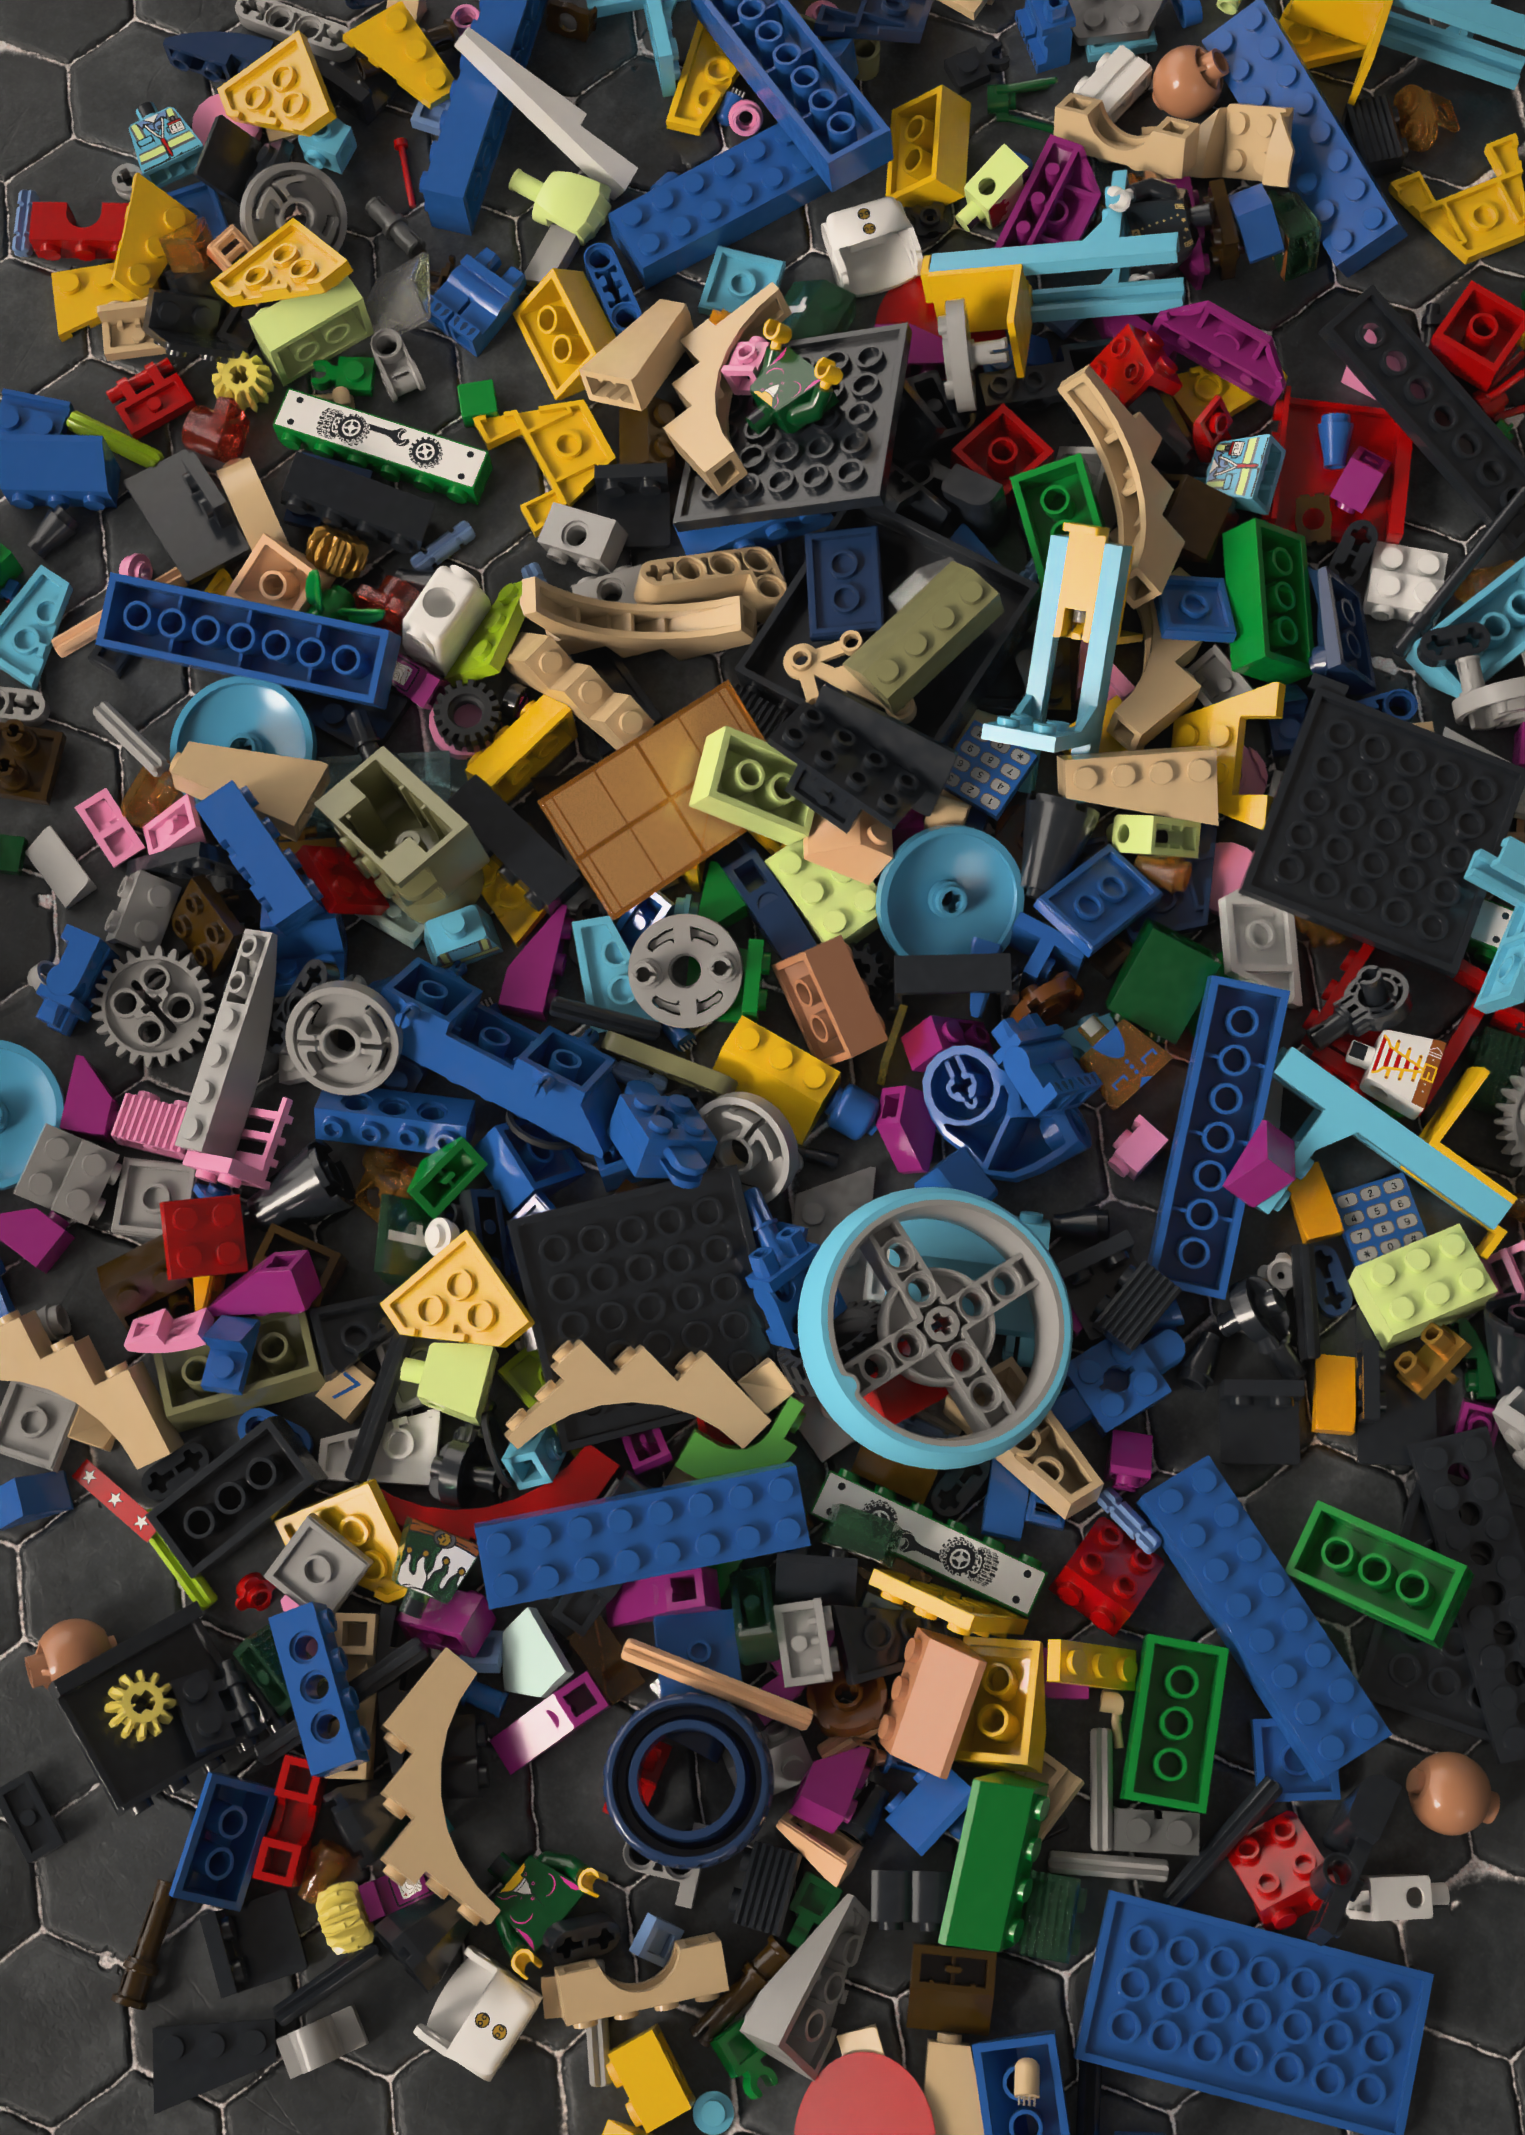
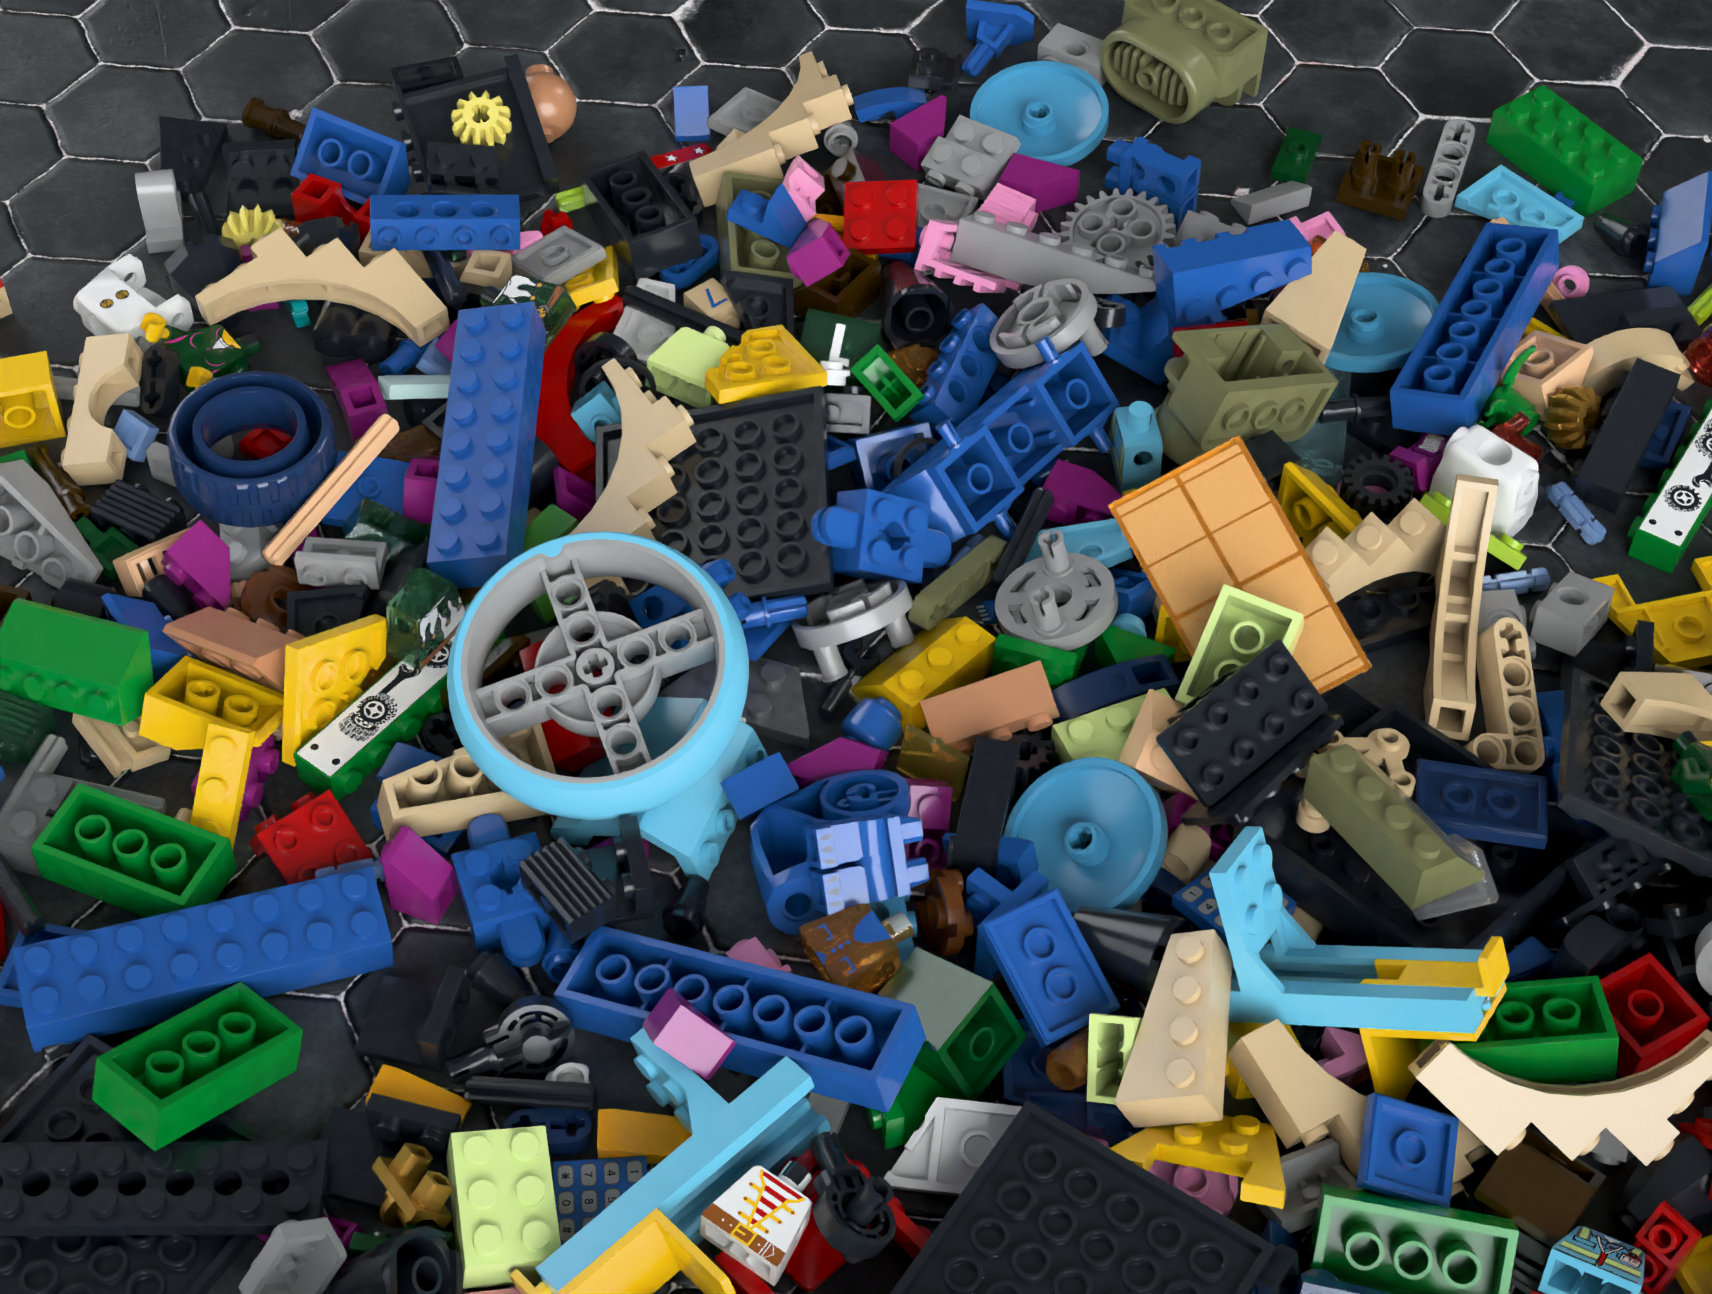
camera: 95 degrees right, 25 degrees down
(131, 739) = (1397, 252): light grey axle -> none

